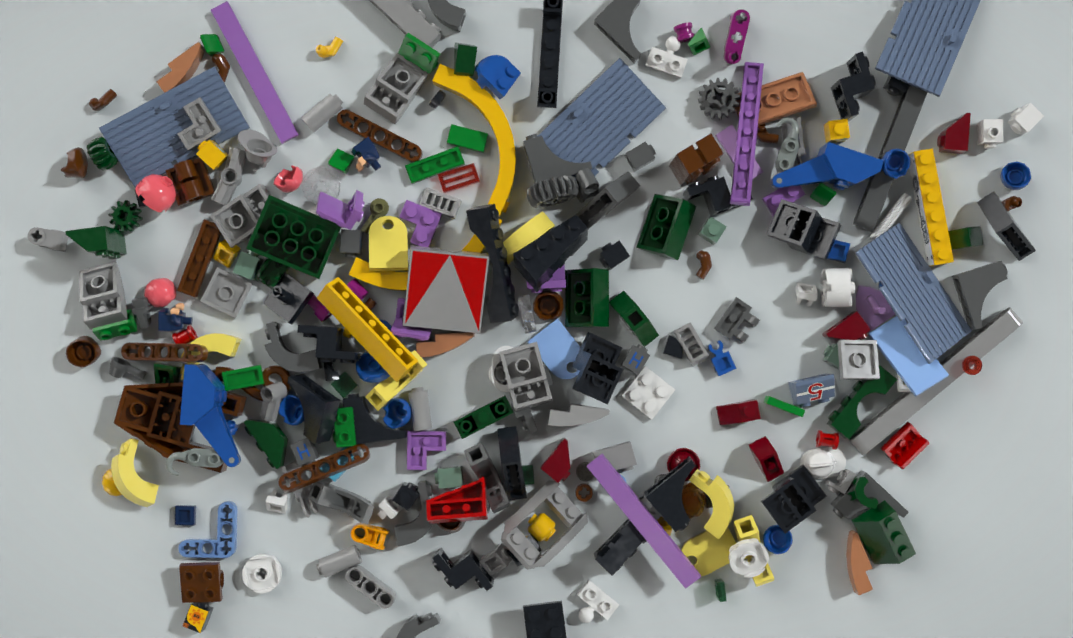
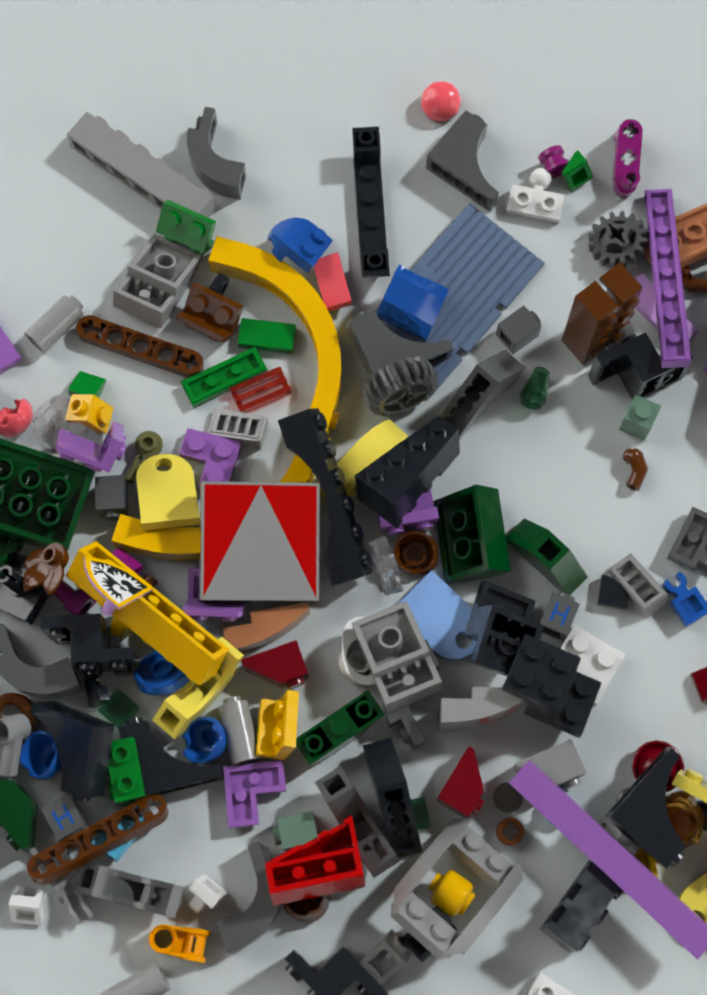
camera: 10 degrees left, 15 degrees down
(303, 290) = (45, 568): none -> reddish brown plate
(329, 50) = (58, 242): yellow arm -> none
(341, 181) = (89, 411): none -> yellow bracket
(347, 310) = (114, 583): none -> shield
(367, 155) = (123, 371): dark blue piece -> none
(406, 495) = (232, 868): black brick -> none
(430, 119) = (210, 313): none -> reddish brown bracket
(444, 410) = (277, 726): none -> yellow bracket
(450, 370) = (279, 666): none -> dark red slope
(464, 59) = (251, 225): dark green slope -> none
(516, 106) = (332, 282): none -> coral slope
(569, 130) = (412, 302): none -> blue slope
(587, 184) = (450, 373): dark grey piece -> none
(613, 255) = (502, 468): black brick -> none
(622, 408) = (552, 685): none -> black bracket
(645, 200) = (535, 390): none -> clear green cone
(666, 226) = (573, 420): dark green slope -> none

